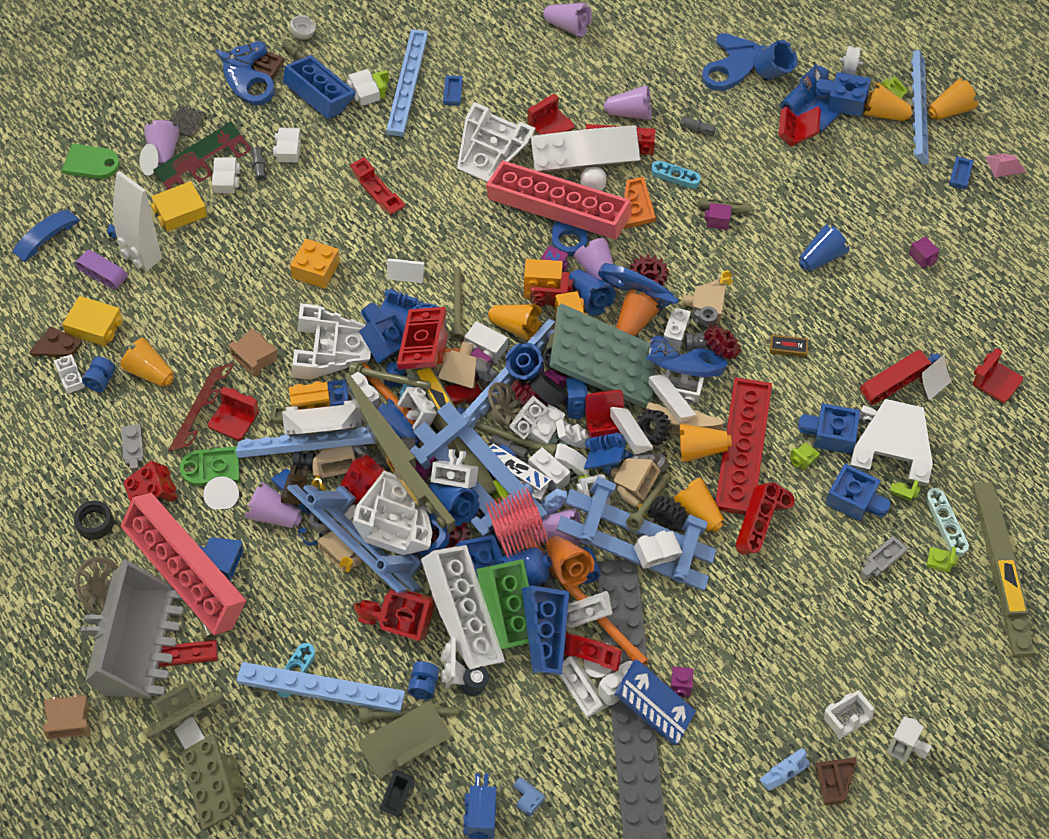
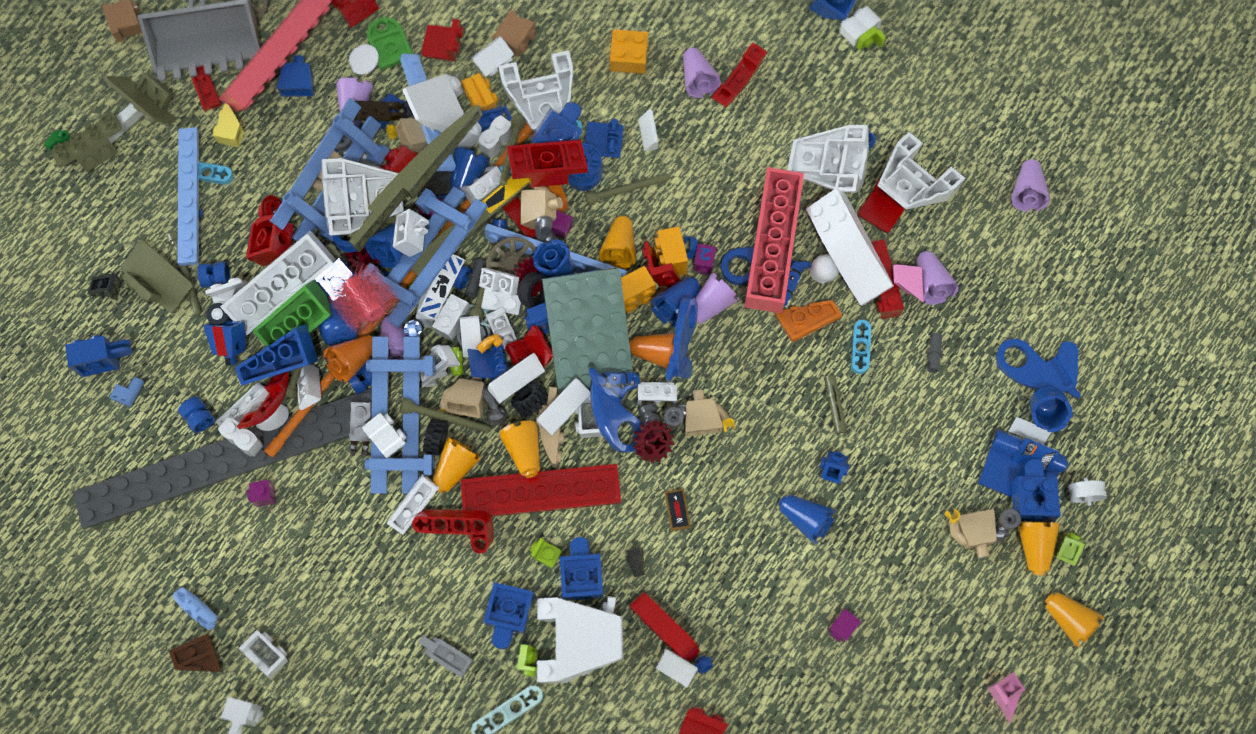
camera: 75 degrees right, 15 degrees up
(188, 818) = (56, 137): none -> green arm
(201, 400) = (445, 10): dark red piece -> none
(252, 633) = (228, 129): none -> light yellow slope
(275, 370) = (493, 56): none -> white brick
(361, 214) = (699, 74): none -> lavender cone
(407, 83) = (884, 62): light blue plate -> none
(452, 90) = (891, 107): blue tile -> none
(487, 340) = (587, 224): white brick -> none
(506, 677) = (226, 340): none -> blue torso
(534, 92) = (910, 182): none -> white wedge
(580, 727) = (196, 414): none -> blue wheel
(583, 444) = (488, 341): none -> light orange arm
(633, 116) = (909, 280): none -> bright pink slope
(638, 578) = (359, 416): none -> hinge
(650, 268) = (727, 354): dark red gear -> none
(655, 702) = (226, 472): blue tile -> none
(718, 216) = (817, 401): magenta brick -> none
(728, 551) = (412, 504): none -> white slope
(783, 219) = (834, 466): none -> blue brick
(787, 84) = (1029, 430): none -> white sticker
(795, 128) = (970, 454): red bracket -> none
(829, 387) = (635, 560): none -> clear smoke cone
(863, 138) = (979, 528): none -> tan torso
(920, 104) = (1054, 583): light blue plate -> none
(942, 559) = (461, 714): lime bracket -> none
(961, 173) = (977, 647): blue tile -> none

